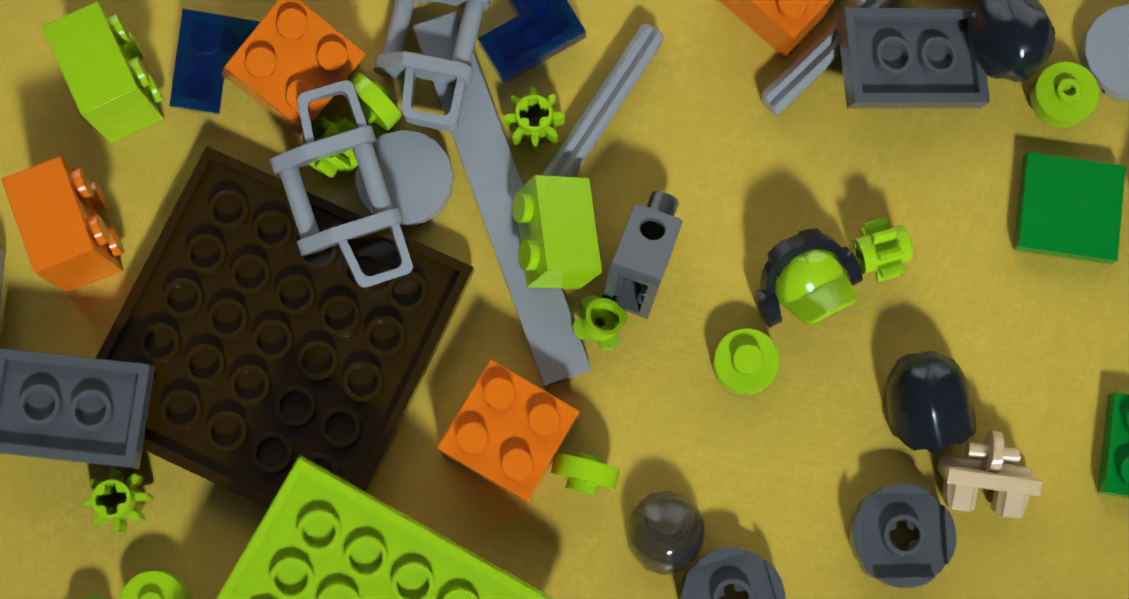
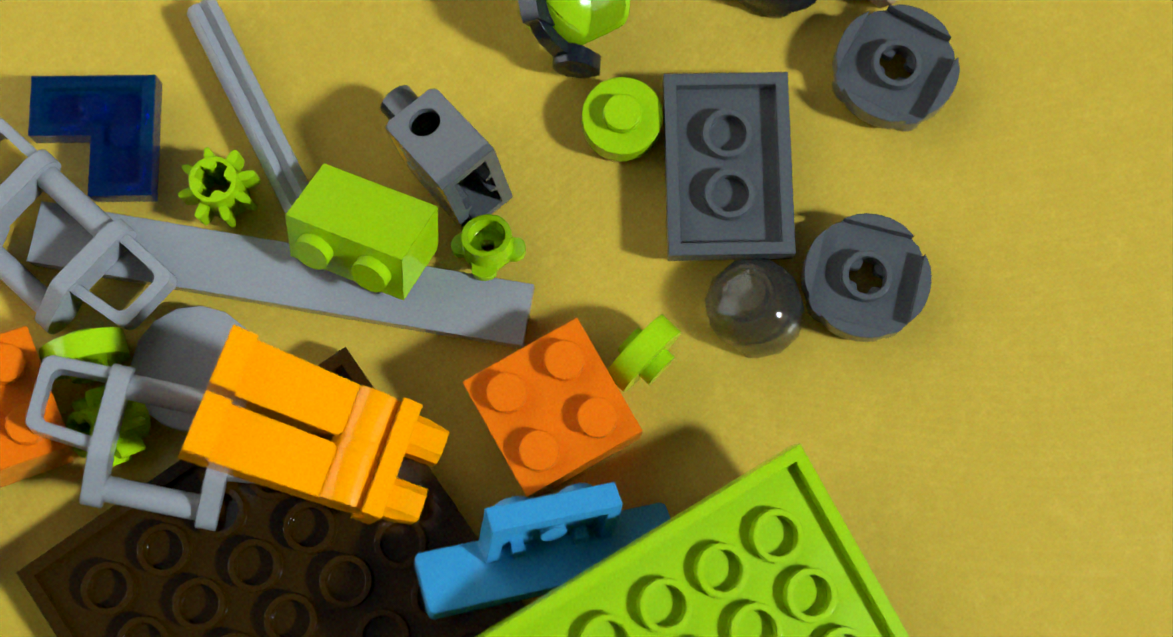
camera: 60 degrees left, 0 degrees up
(406, 473) = (531, 548): none -> dark azure bracket
(423, 312) = (310, 433): none -> light orange hips
(755, 455) = (728, 166): none -> dark grey plate

